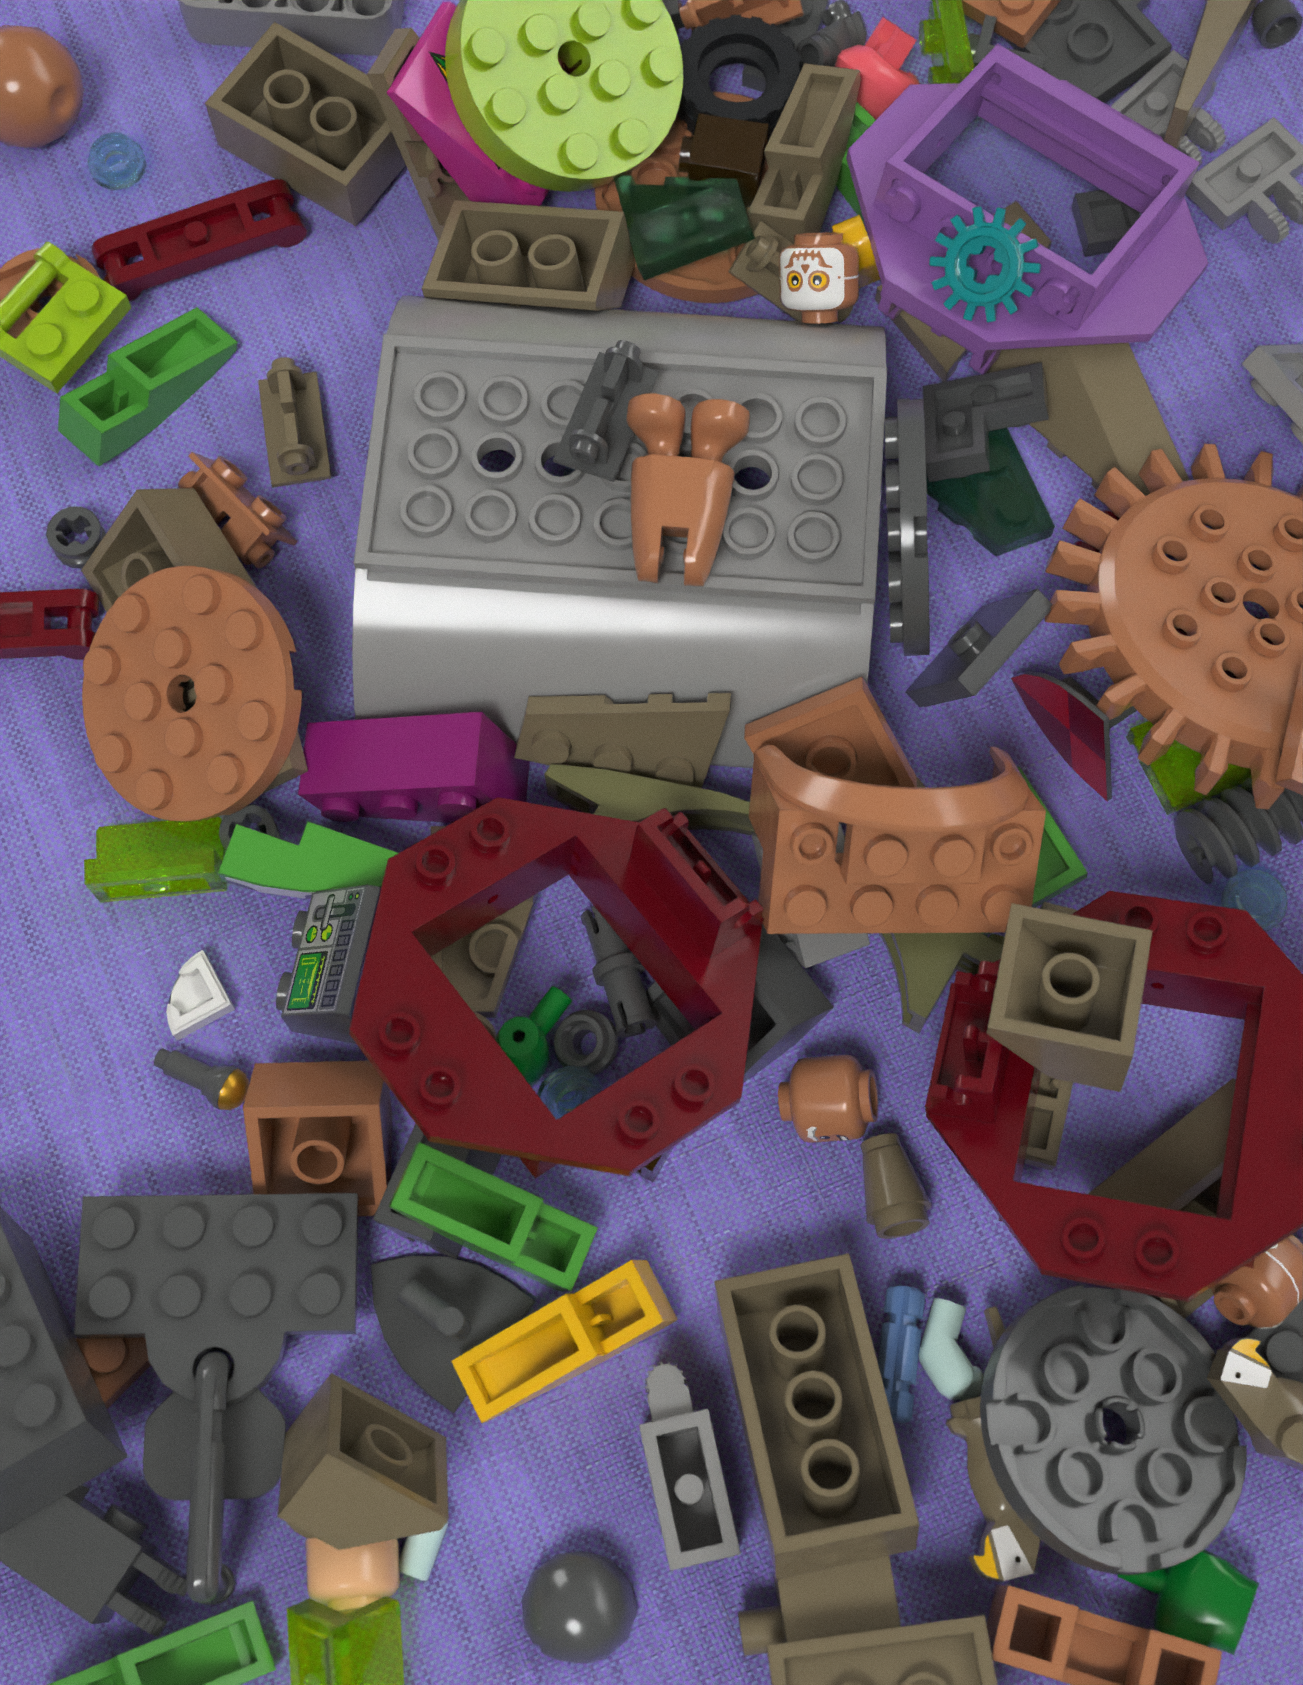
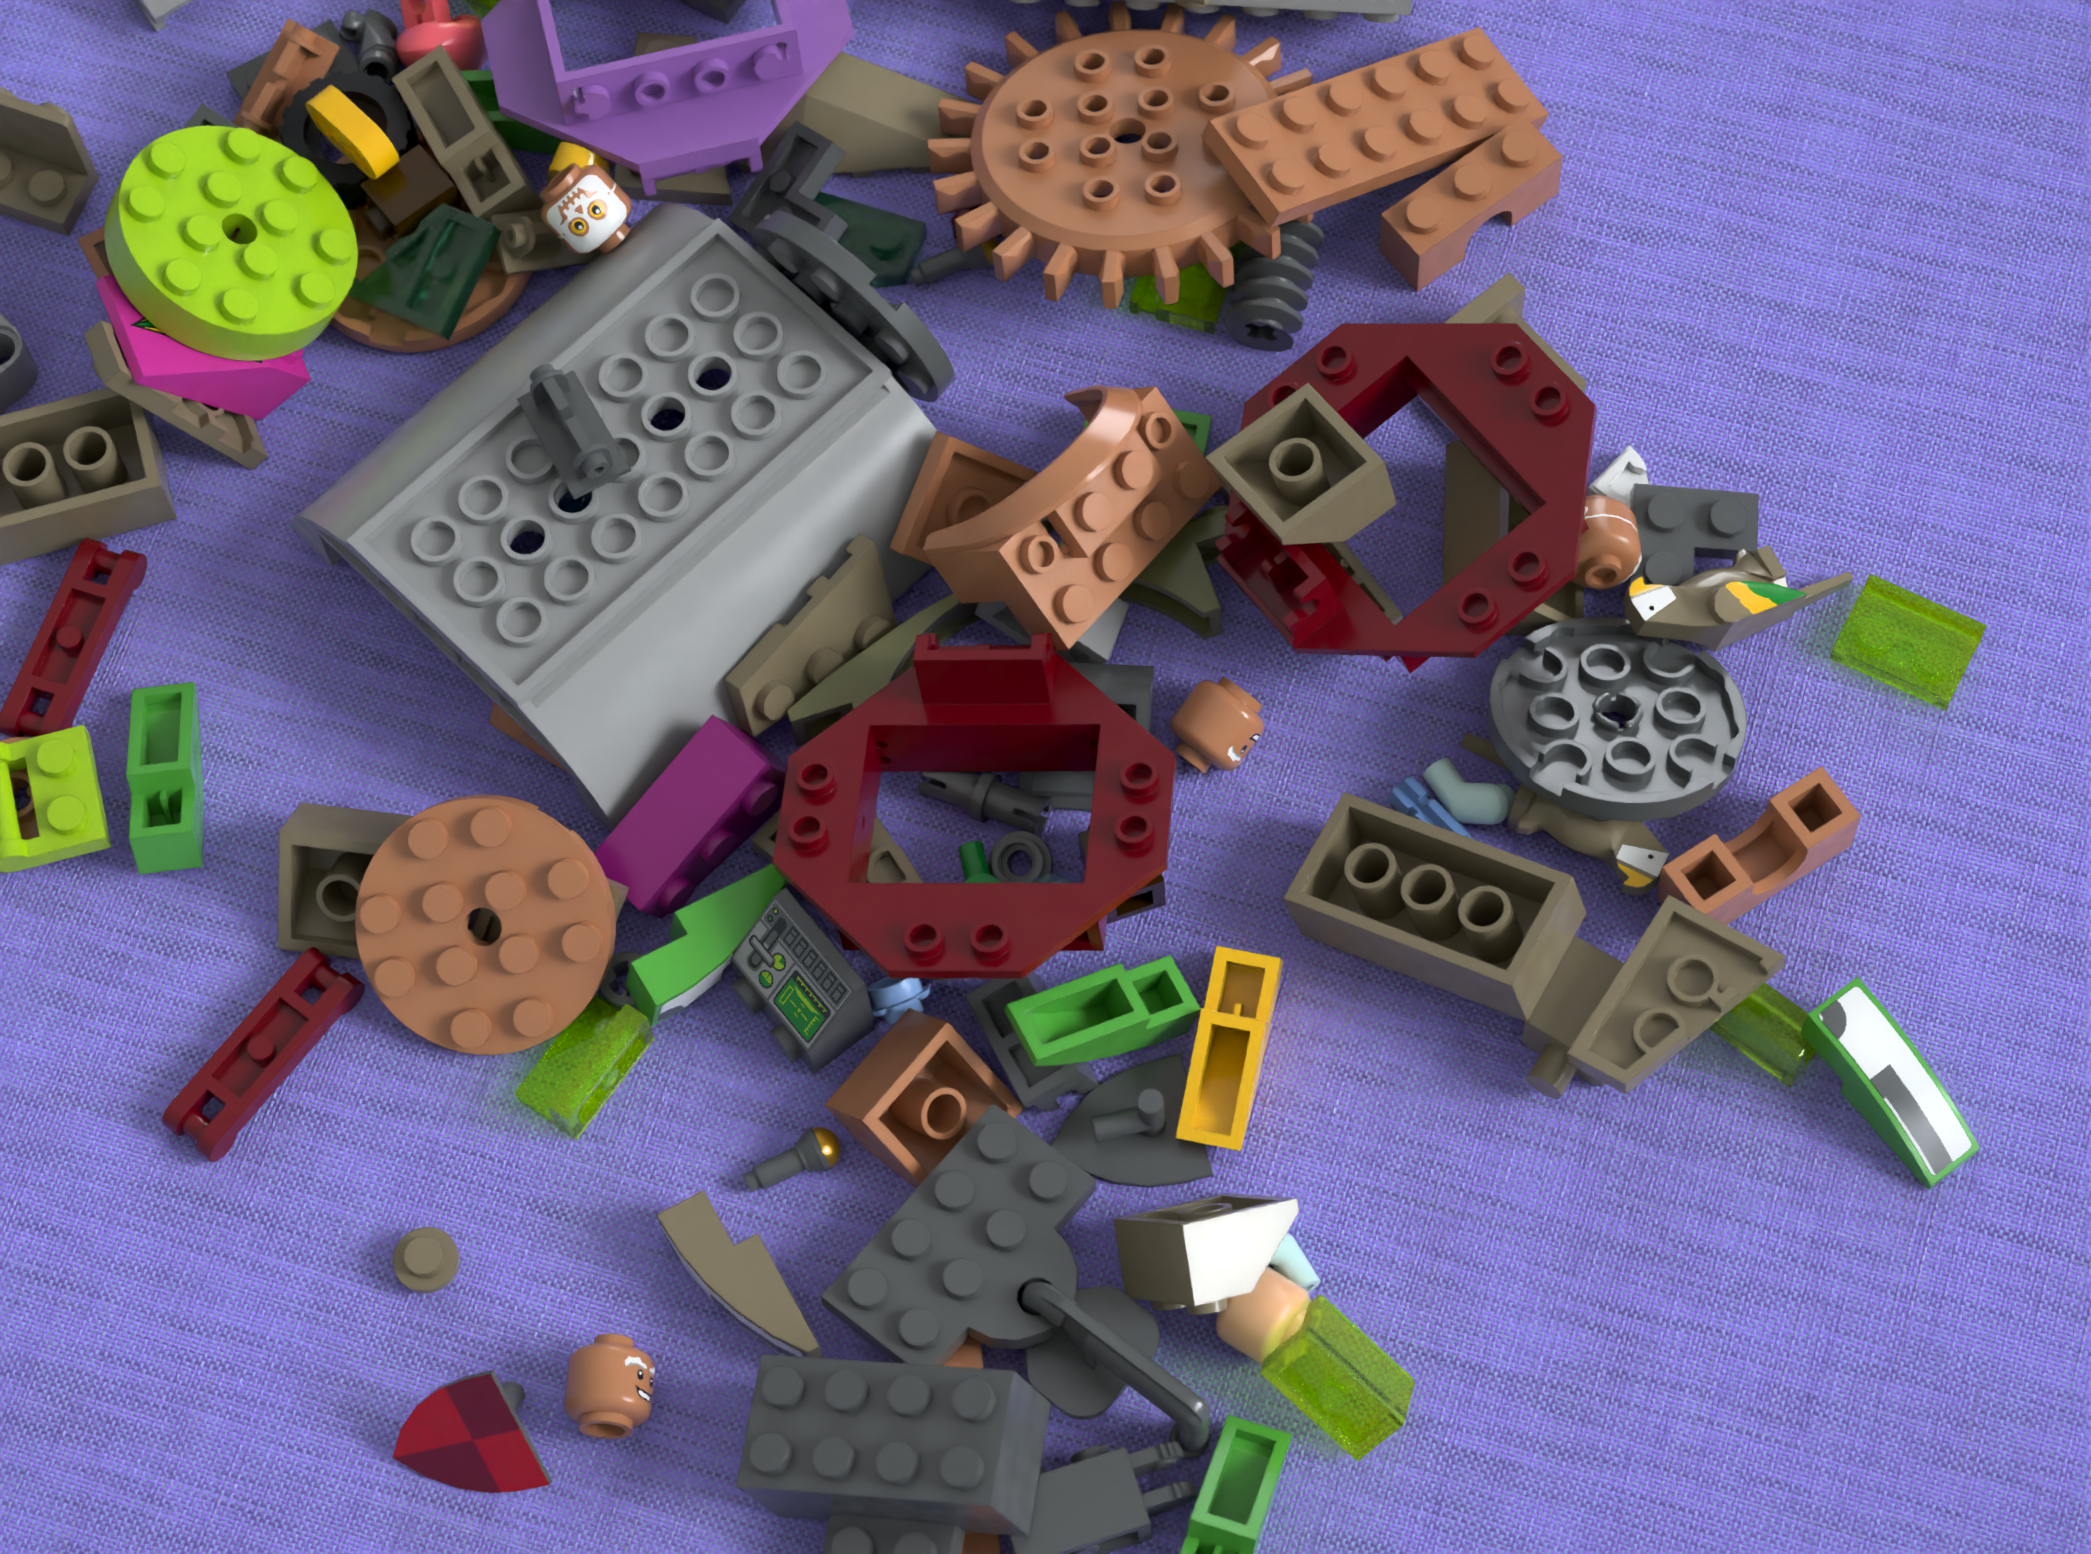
camera: 45 degrees left, 5 degrees down
(66, 1121) = (737, 1277): none -> dark tan slope
(79, 521) = (231, 921): dark grey bush -> none
(196, 997) = (724, 1120): white tile -> none
(253, 521) = (367, 788): nougat hinge -> none
(293, 425) = (310, 694): dark tan hinge -> none
(532, 256) = (355, 401): dark tan slope -> none
(578, 1607) = (1429, 1188): dark grey hair -> none
(677, 492) = (686, 432): nougat piece -> none
(685, 1474) = (1401, 1031): light grey hinge -> none
(730, 70) = (352, 132): none -> yellow beam
(892, 1189) = (1321, 737): dark tan cone -> none
(962, 276) = (692, 110): teal gear -> none
(979, 649) = (979, 346): dark grey plate -> none
(1034, 569) = (953, 261): none -> dark grey piece
(1072, 725) = (1093, 334): shield -> none
(1201, 1600) = (1771, 762): green piece -> none
(1259, 895) = (1325, 317): clear light blue plate -> none

